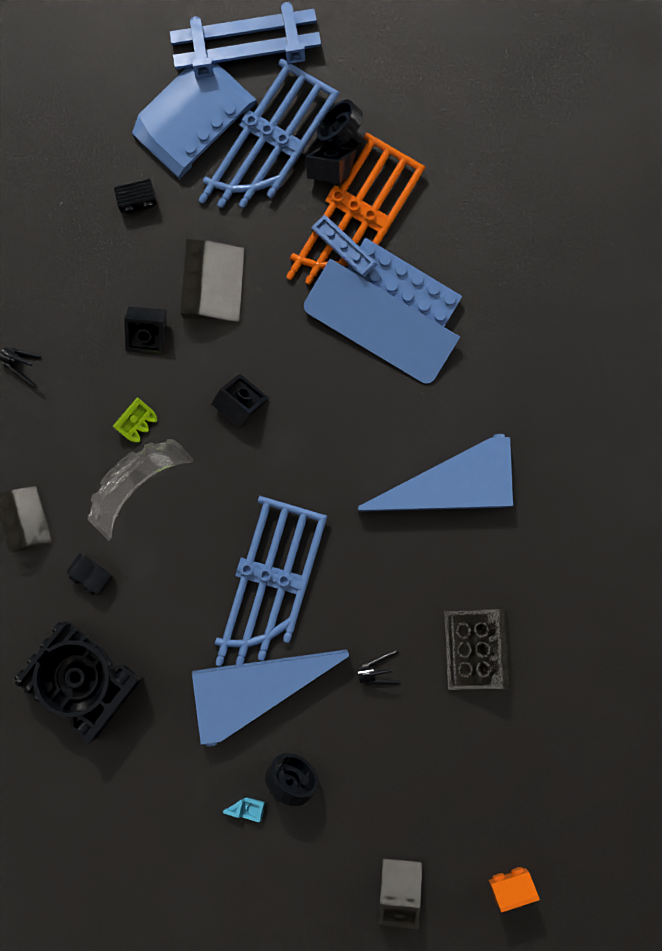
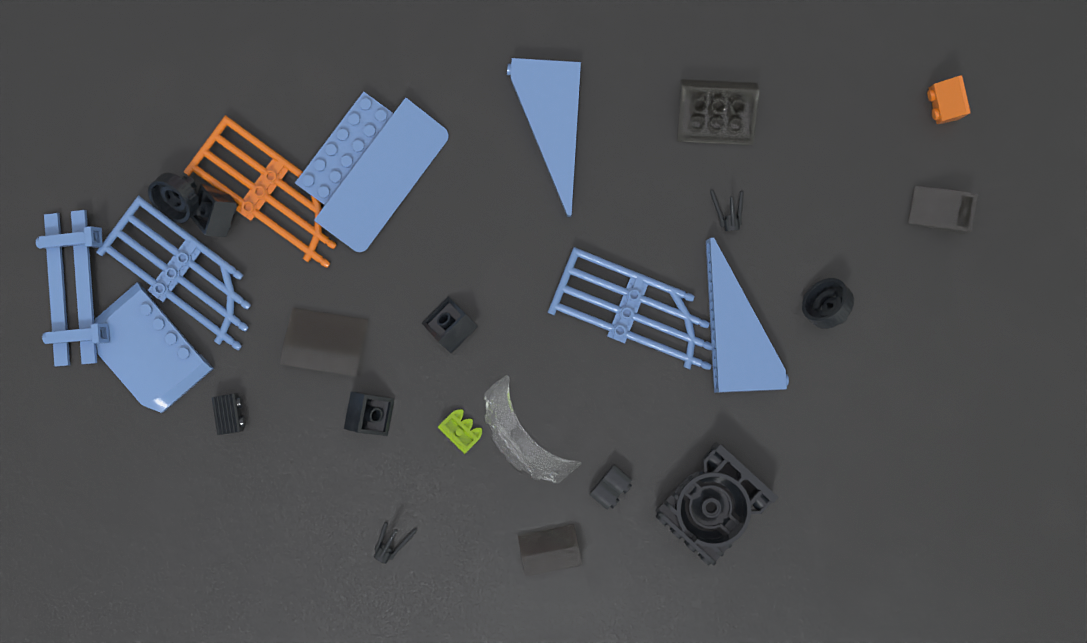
camera: 80 degrees left, 5 degrees up
(248, 809) = (850, 350): medium azure slope -> none
(344, 246) = (301, 205): medium blue tile -> none

